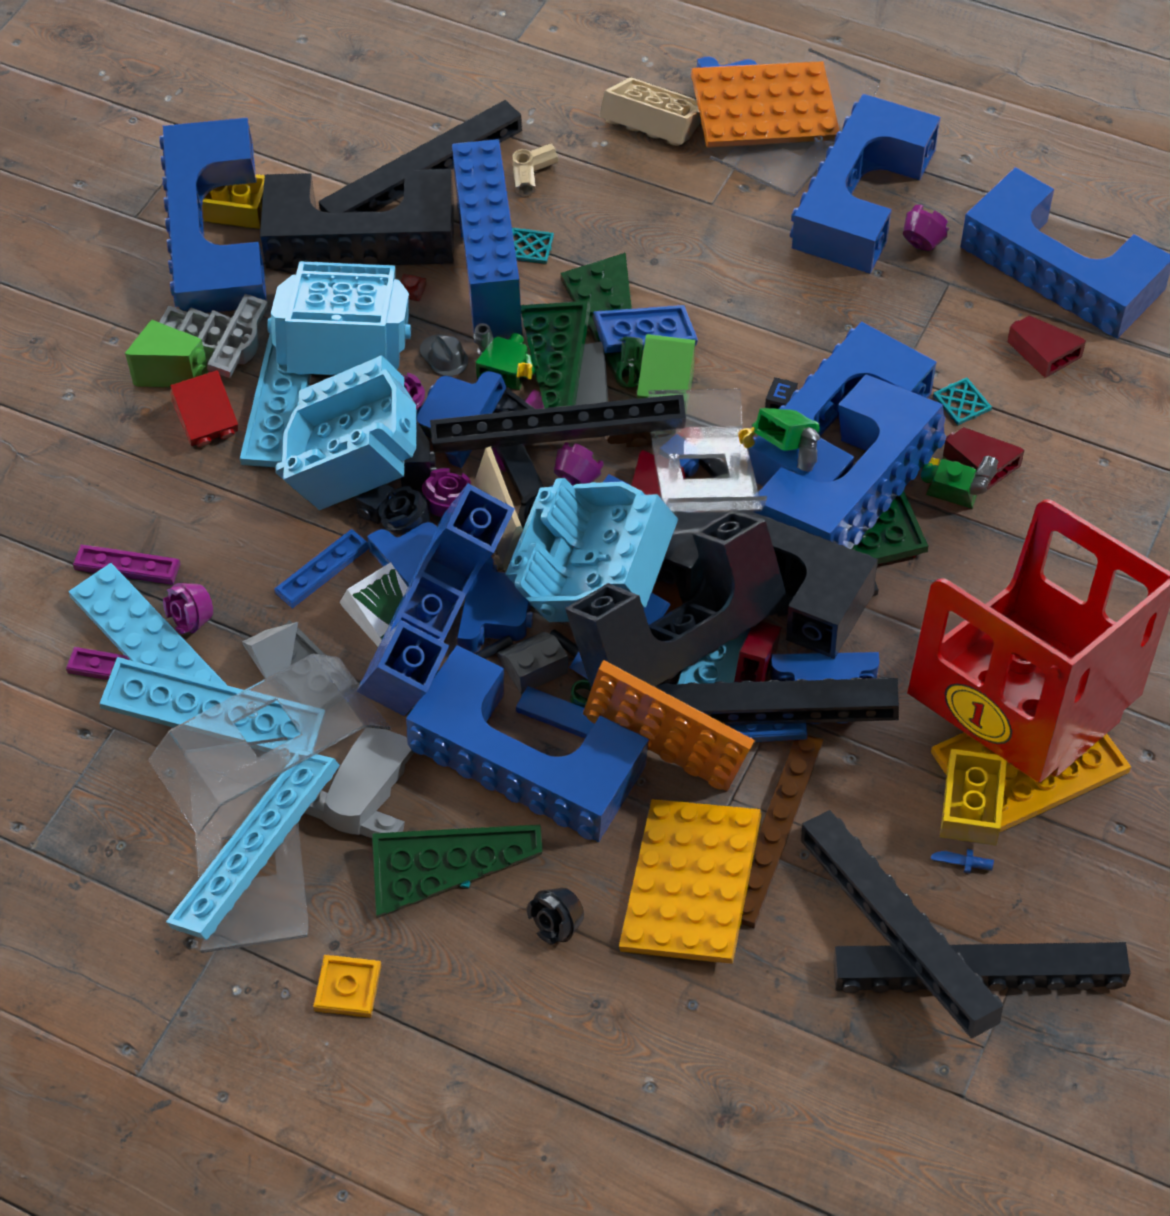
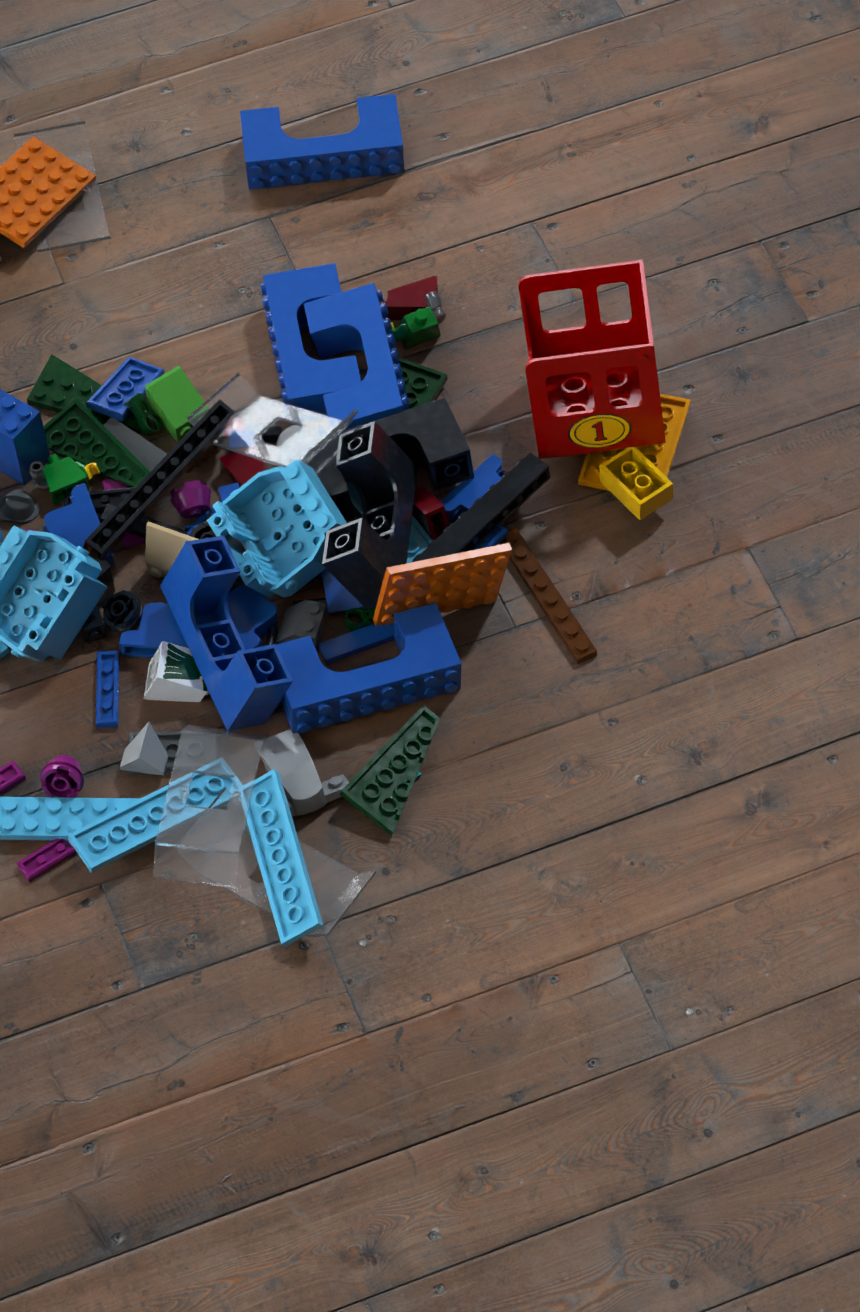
camera: 45 degrees left, 0 degrees up
(347, 986) = (422, 882): light orange tile -> none
(443, 489) = (134, 577): magenta cone -> none
(556, 914) = (492, 740): black cone -> none
(691, 881) = (538, 659): light orange plate -> none
(780, 393) = (259, 362): black brick -> none
(787, 431) = (305, 369): green torso -> none
(873, 138) = (157, 230): blue arch -> none
(902, 924) = (674, 577): black brick -> none
(924, 229) = (221, 193): magenta cone -> none
(952, 387) = (362, 268): teal window -> none
(967, 860) = (665, 521): blue piece -> none
(999, 966) = (734, 568): black brick -> none
(1045, 345) = (371, 207): dark red slope -> none

